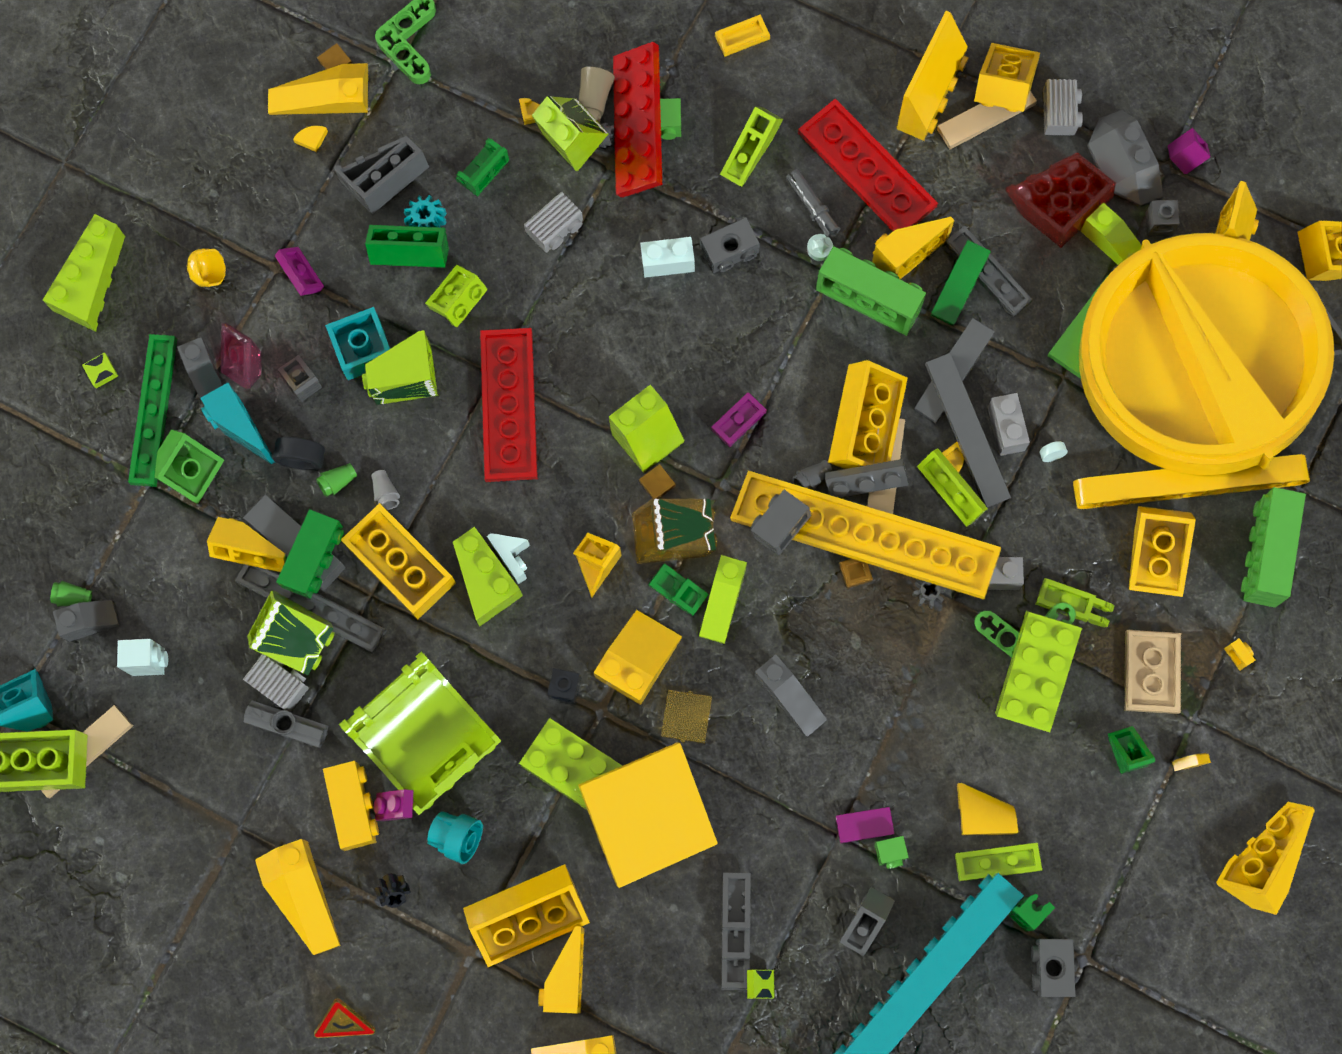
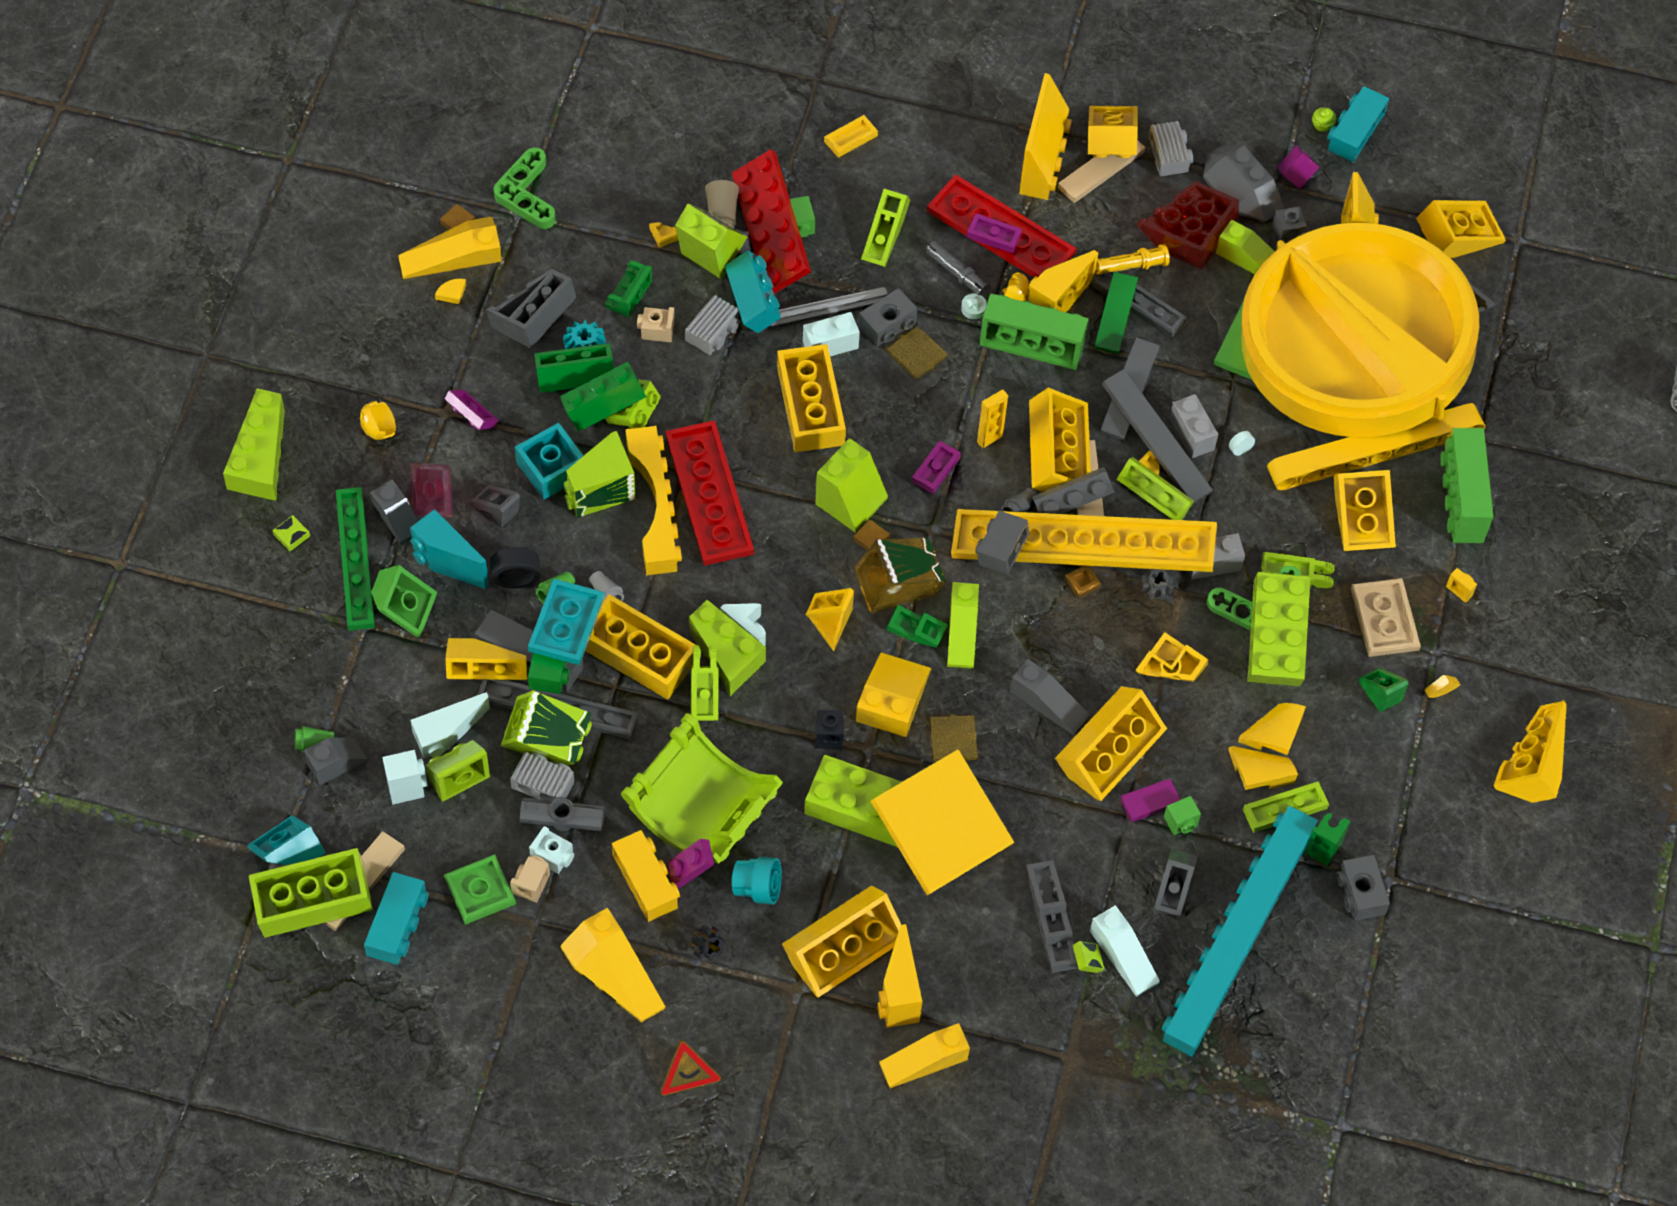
camera: 20 degrees left, 15 degrees down
(104, 801) = (396, 918): none -> teal brick
(192, 784) = (479, 889): none -> bright green tile
(196, 608) = (445, 726): none -> light aqua slope
(196, 656) = (458, 769): none -> lime slope
(241, 785) = (531, 878): none -> tan brick
(260, 752) = (558, 858): none -> light aqua brick
(324, 533) = (566, 621): none -> teal plate
(425, 284) = (603, 396): none -> green brick
(446, 452) = (645, 457): none -> yellow arch
(451, 618) = (704, 686): none -> lime hinge
(504, 217) = (656, 324): none -> tan brick
(600, 194) = (753, 291): none -> teal brick
(630, 322) = (811, 398): none -> yellow brick
(673, 221) = (830, 306): none -> light grey axle
(751, 287) = (917, 352): none -> clear yellow piece
(798, 986) = (1124, 950): none -> light aqua slope
(803, 384) = (992, 418): none -> yellow tile
(840, 756) = (1111, 742): none -> yellow slope
(857, 173) = (994, 233): none -> magenta plate
(864, 241) = (1017, 287): none -> yellow hair
(924, 678) = (1172, 661): none -> yellow slope
(1002, 227) = (1141, 259): none -> yellow pin
(1009, 774) = (1275, 729): none -> yellow slope
(1229, 100) = (1324, 119): none -> lime plate
(1263, 112) = (1357, 123): none -> teal brick

